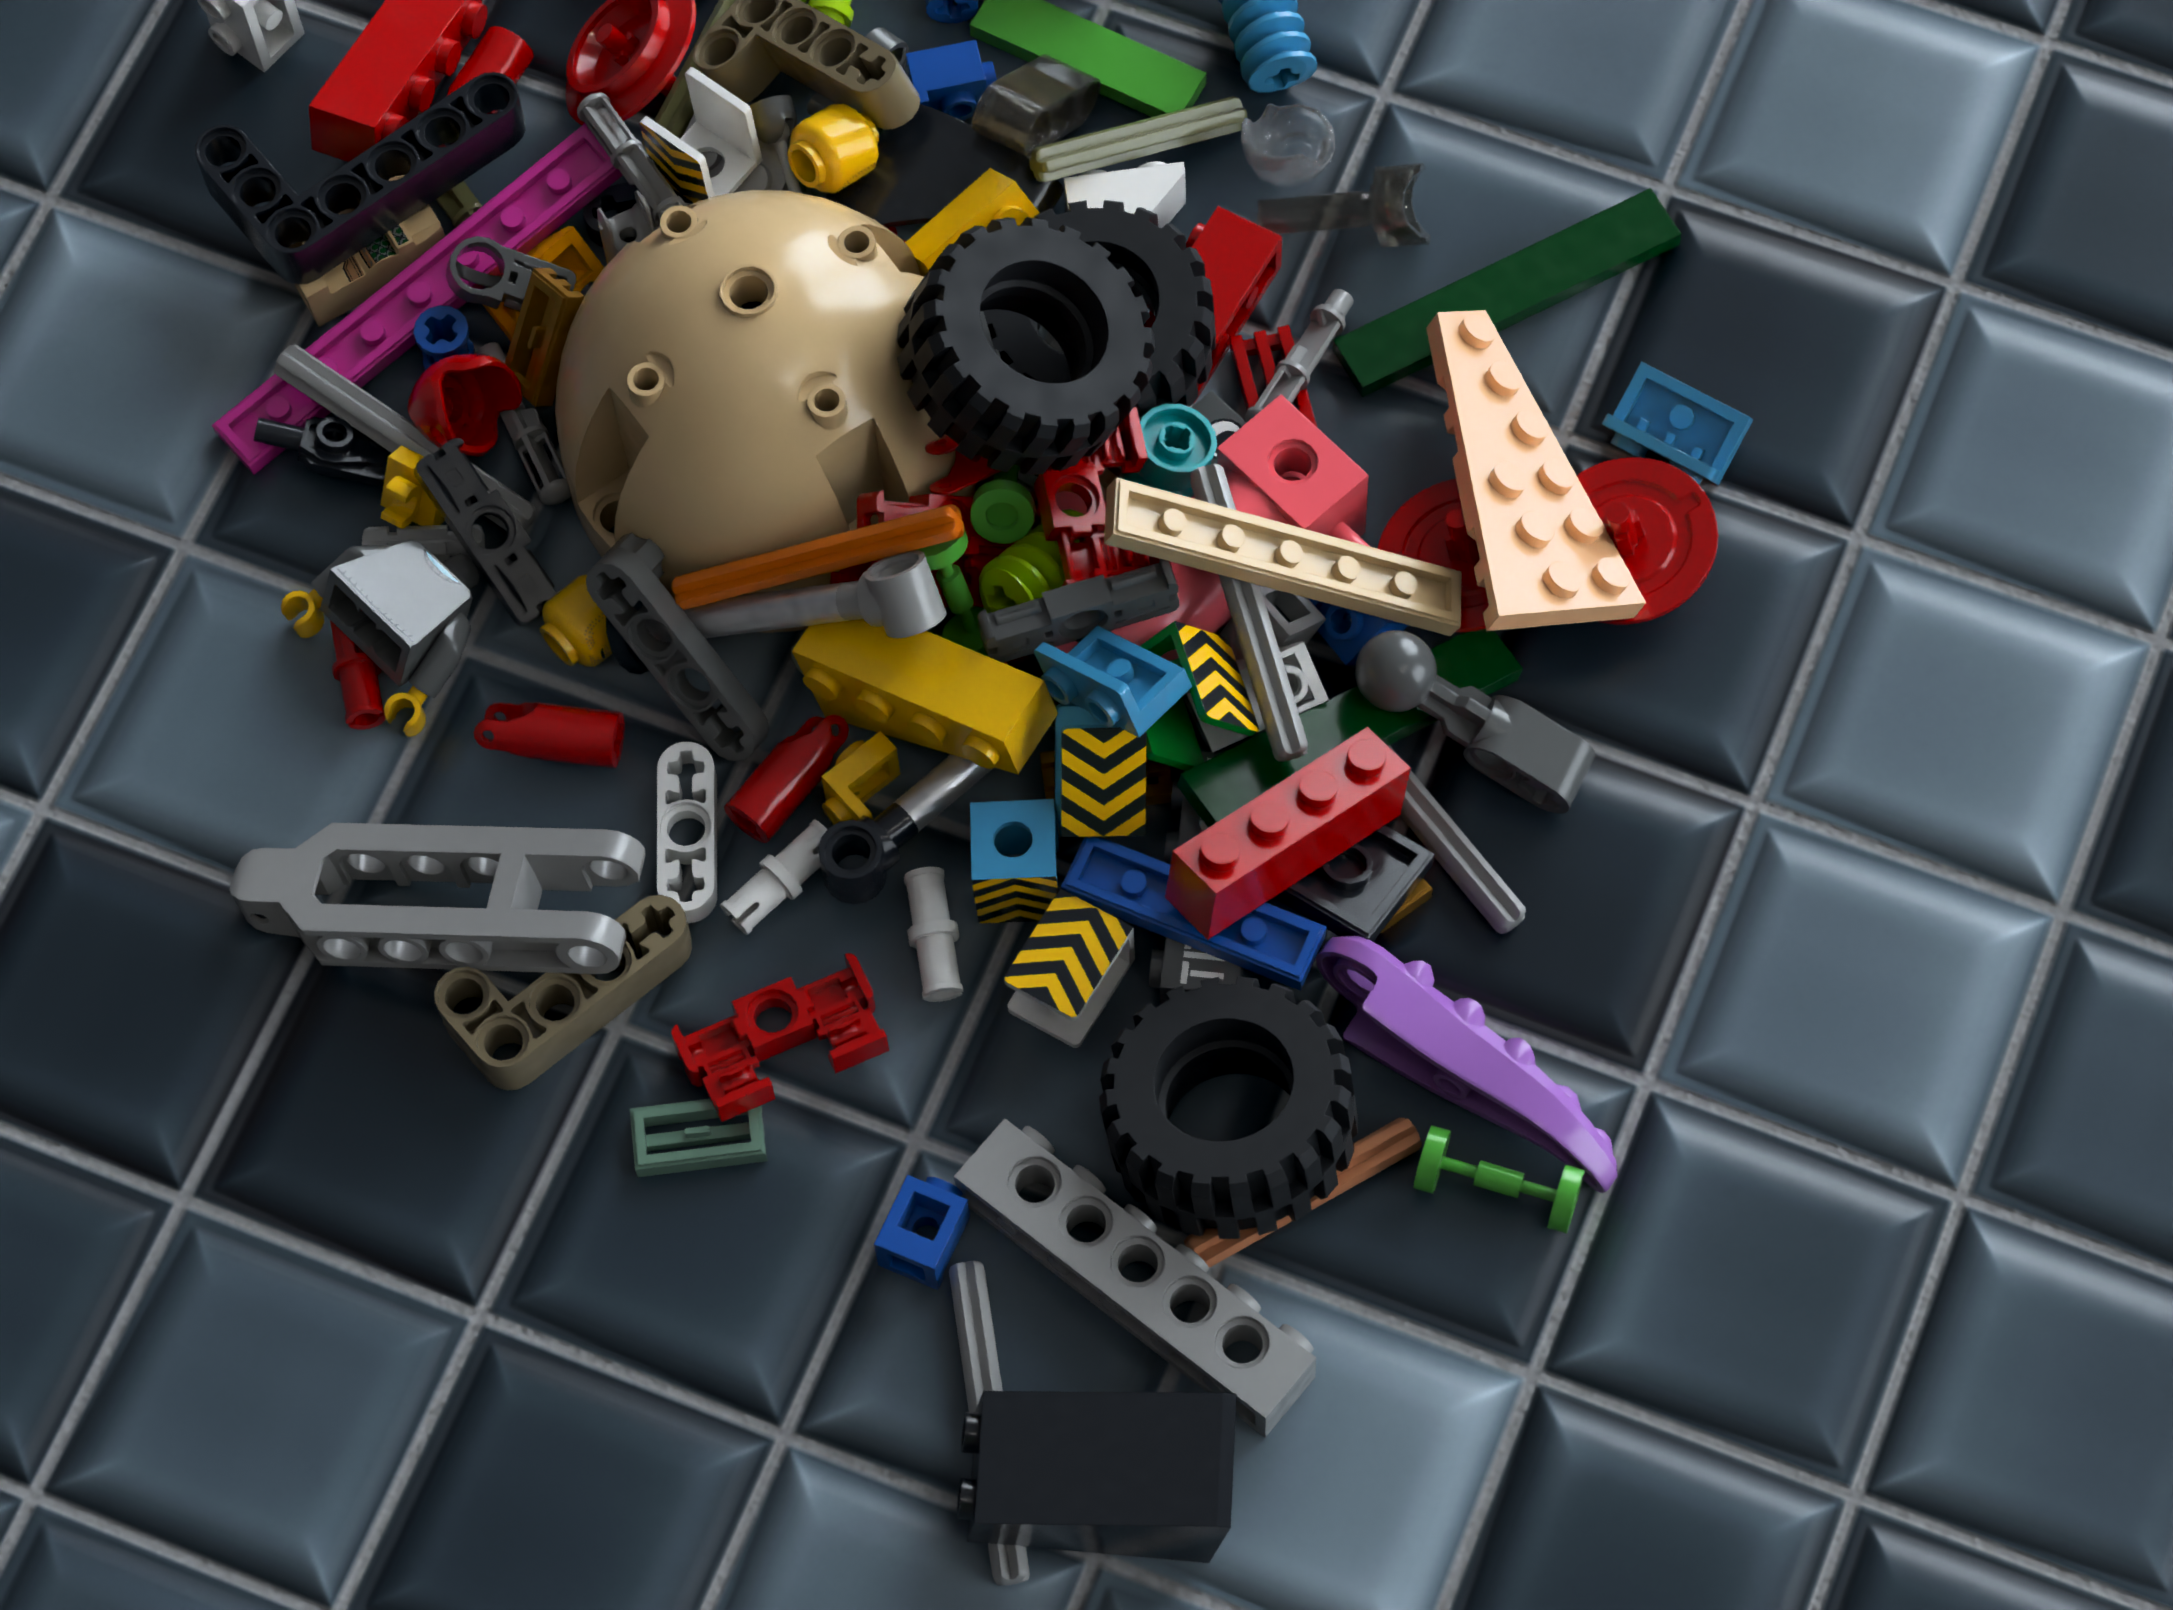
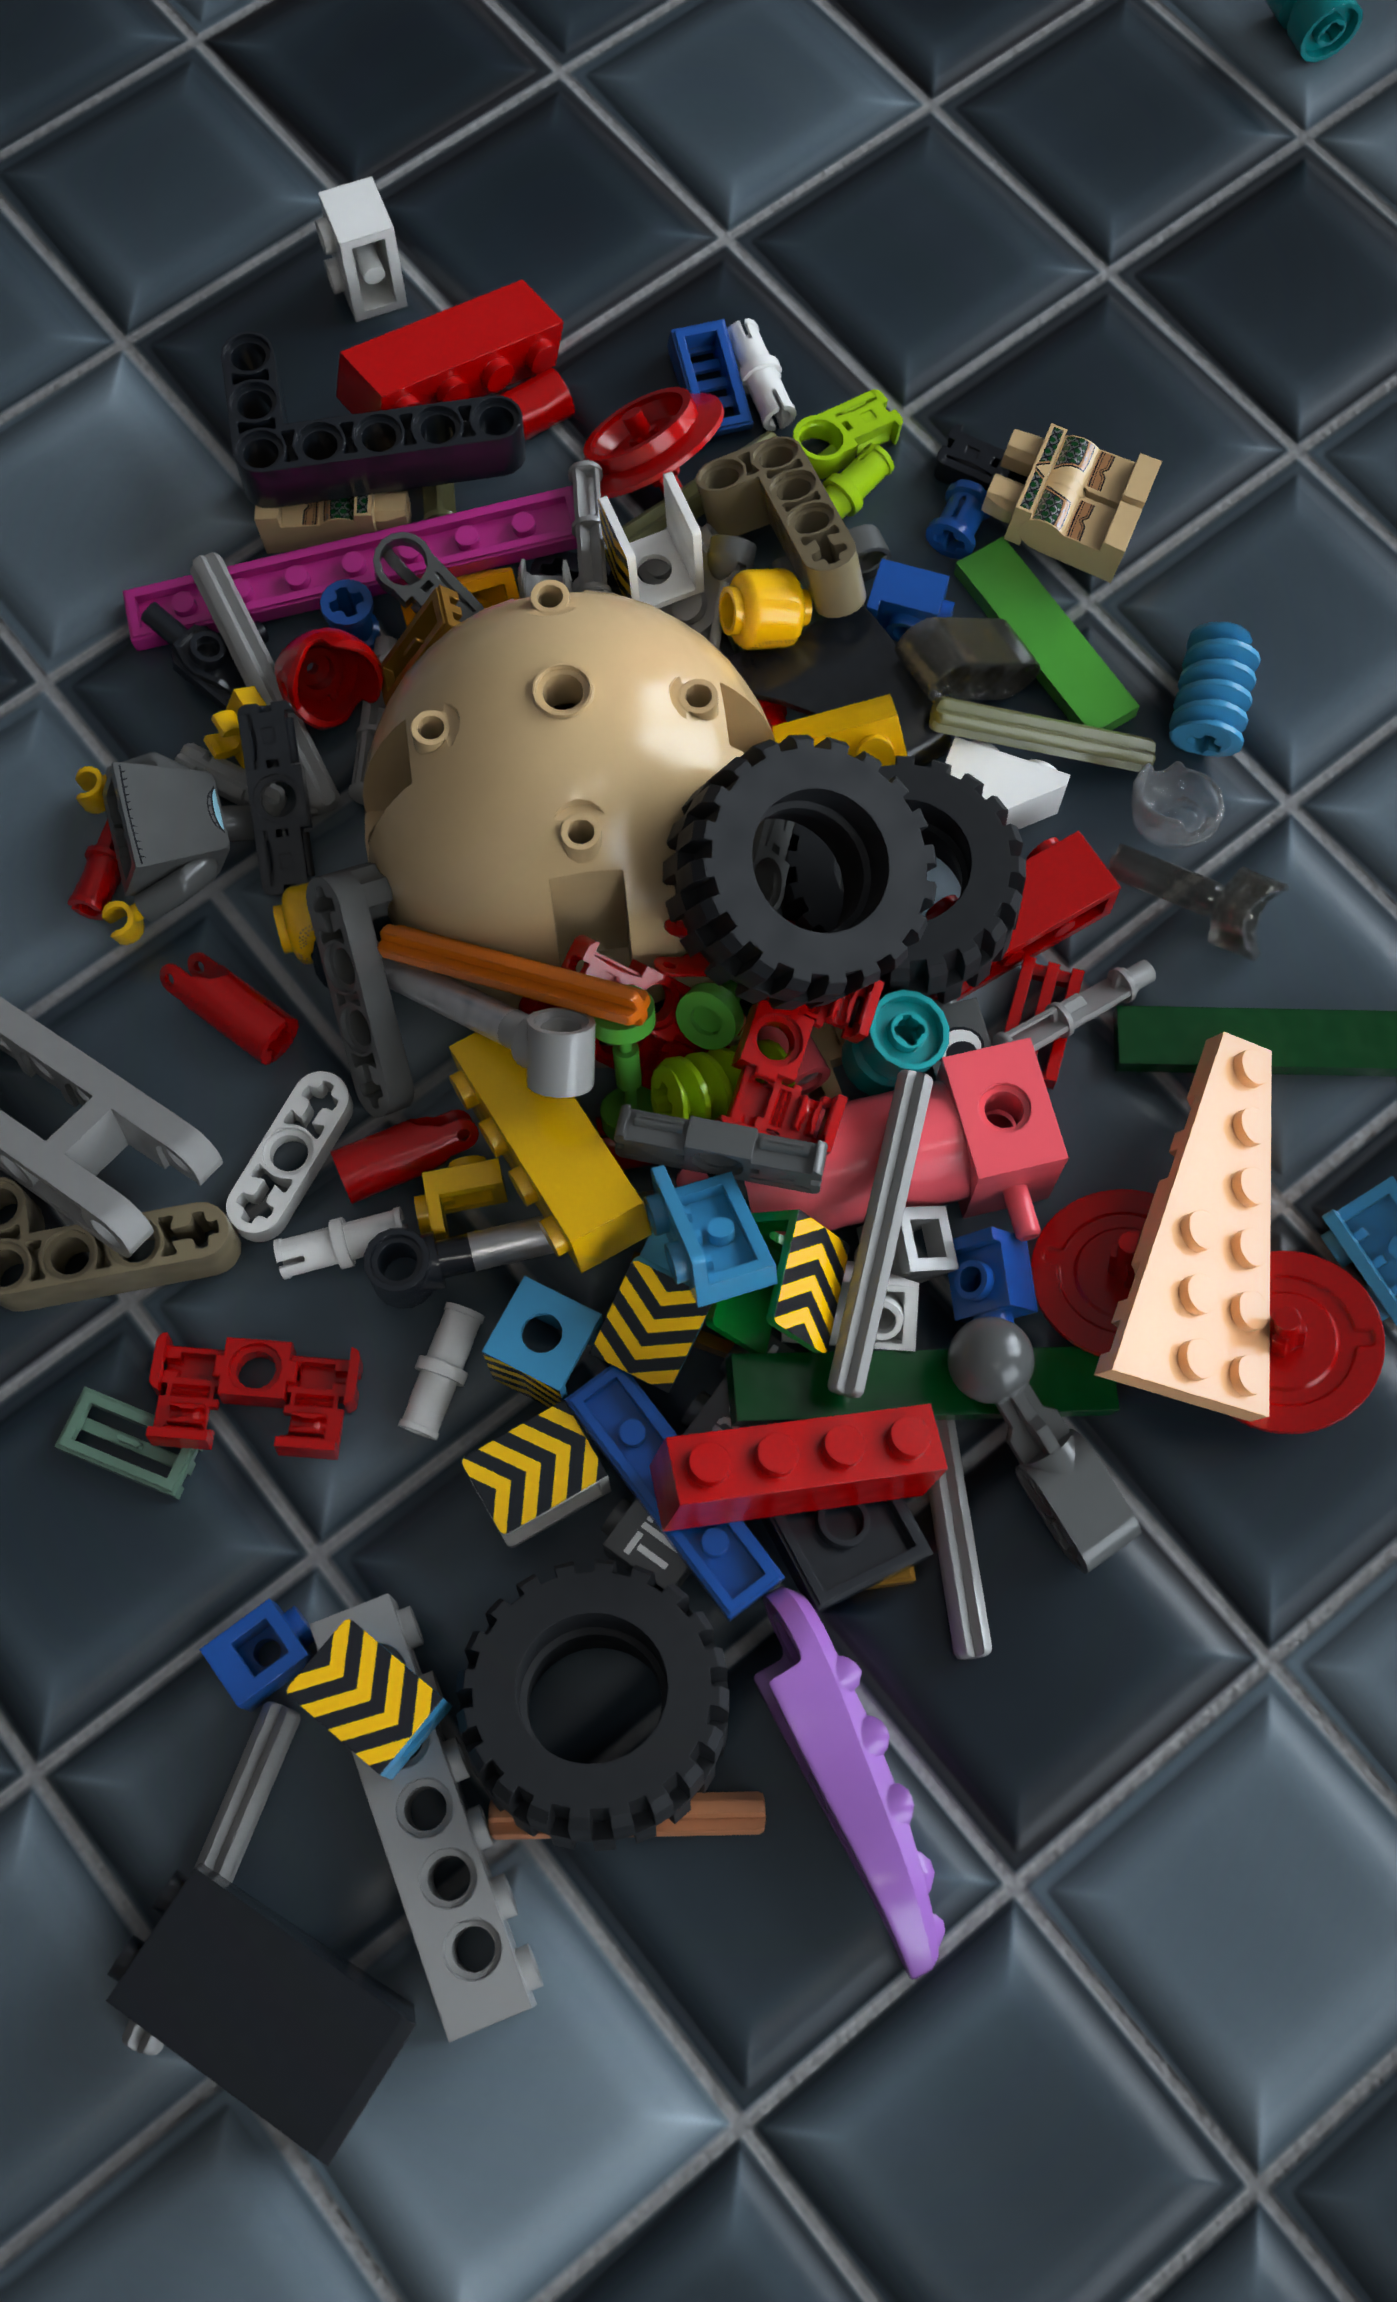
camera: 25 degrees right, 5 degrees up
(1047, 1189) = (368, 1699): none -> piece
(1282, 557) = (938, 1196): tan tile -> none
(1498, 1179) = (817, 1917): bright green wheel -> none

